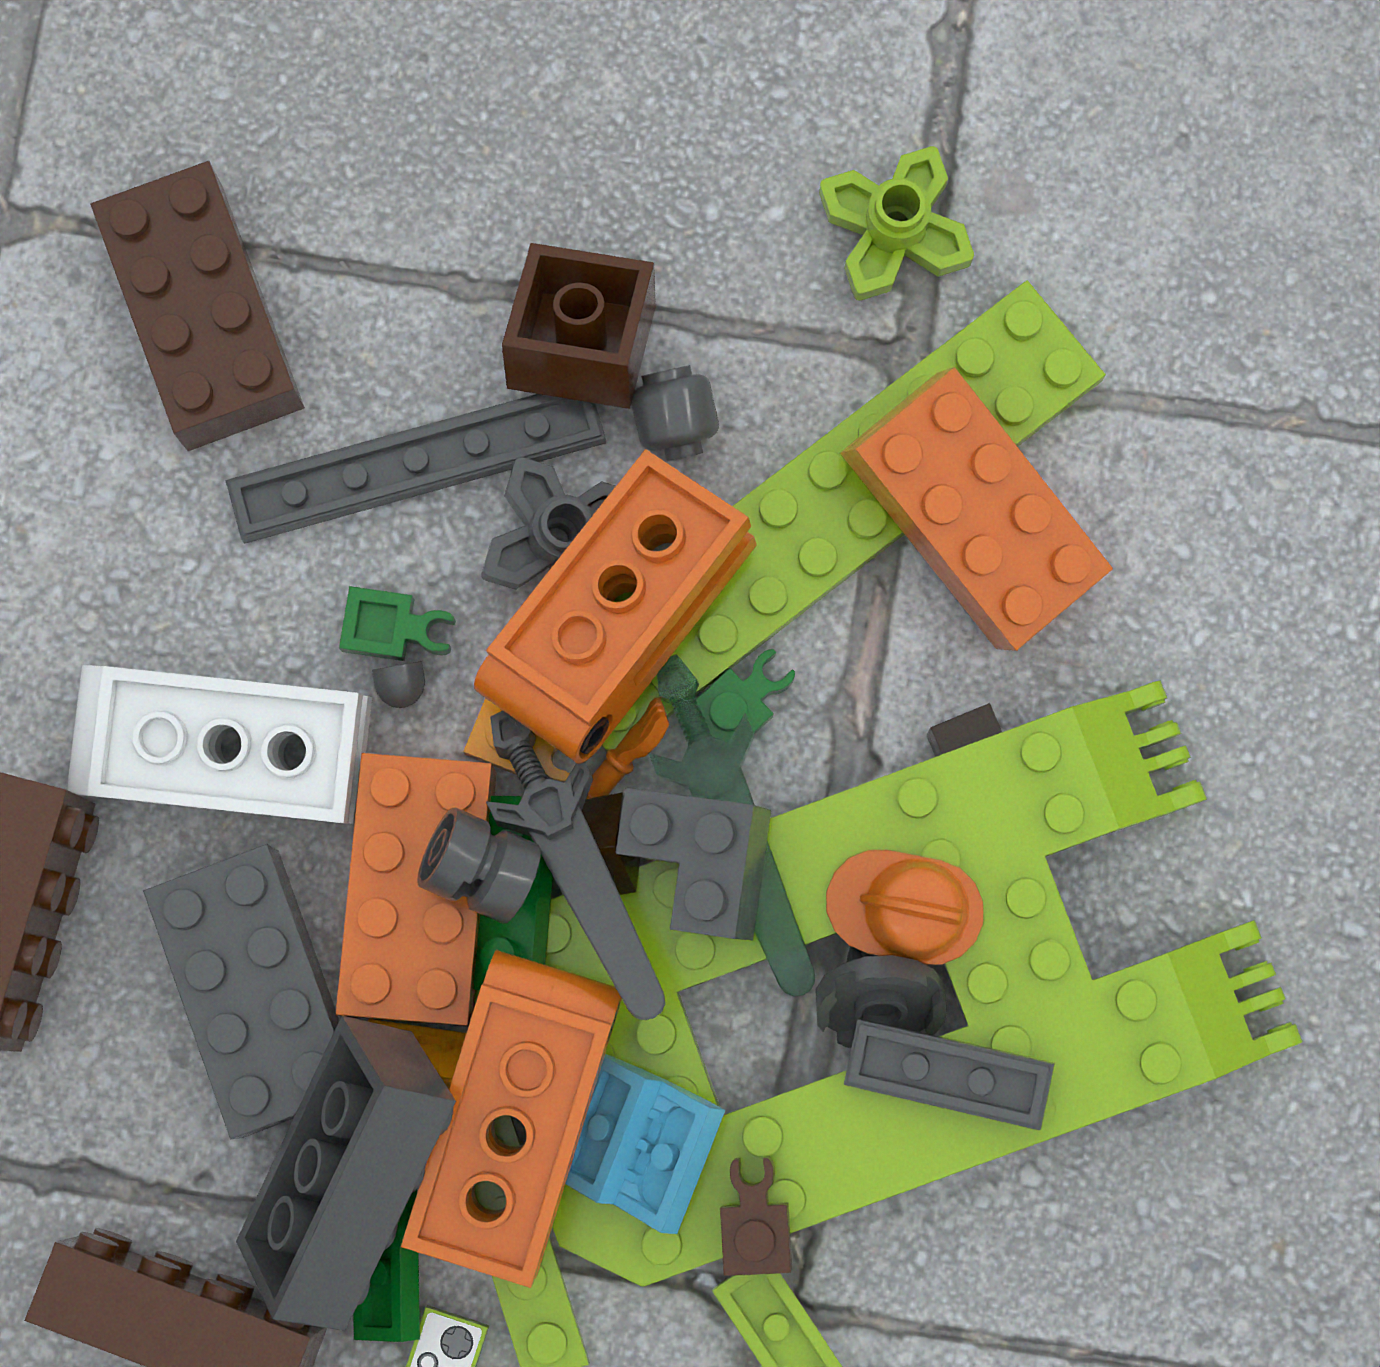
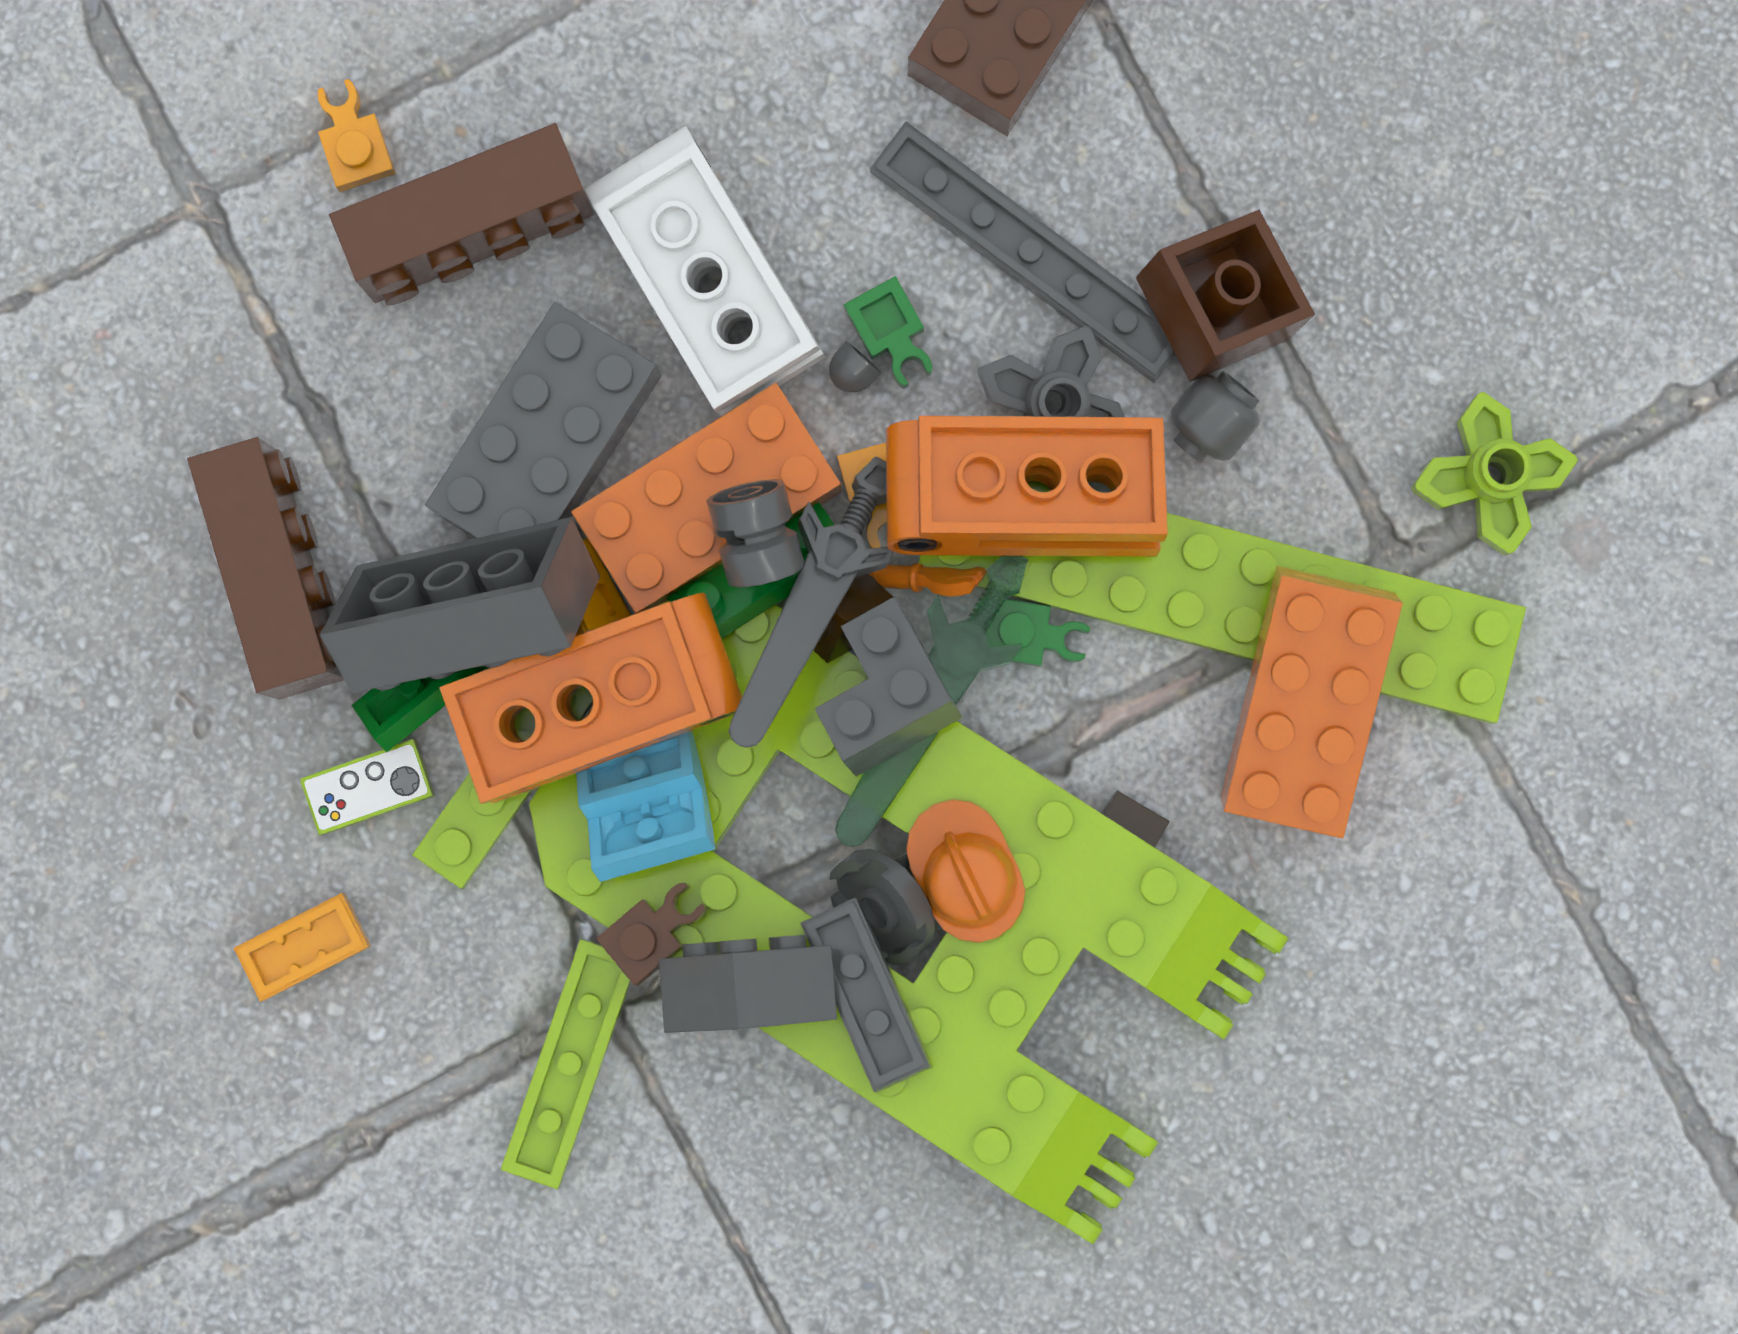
camera: 55 degrees right, 5 degrees up
(866, 1172) = (744, 988): none -> dark grey brick

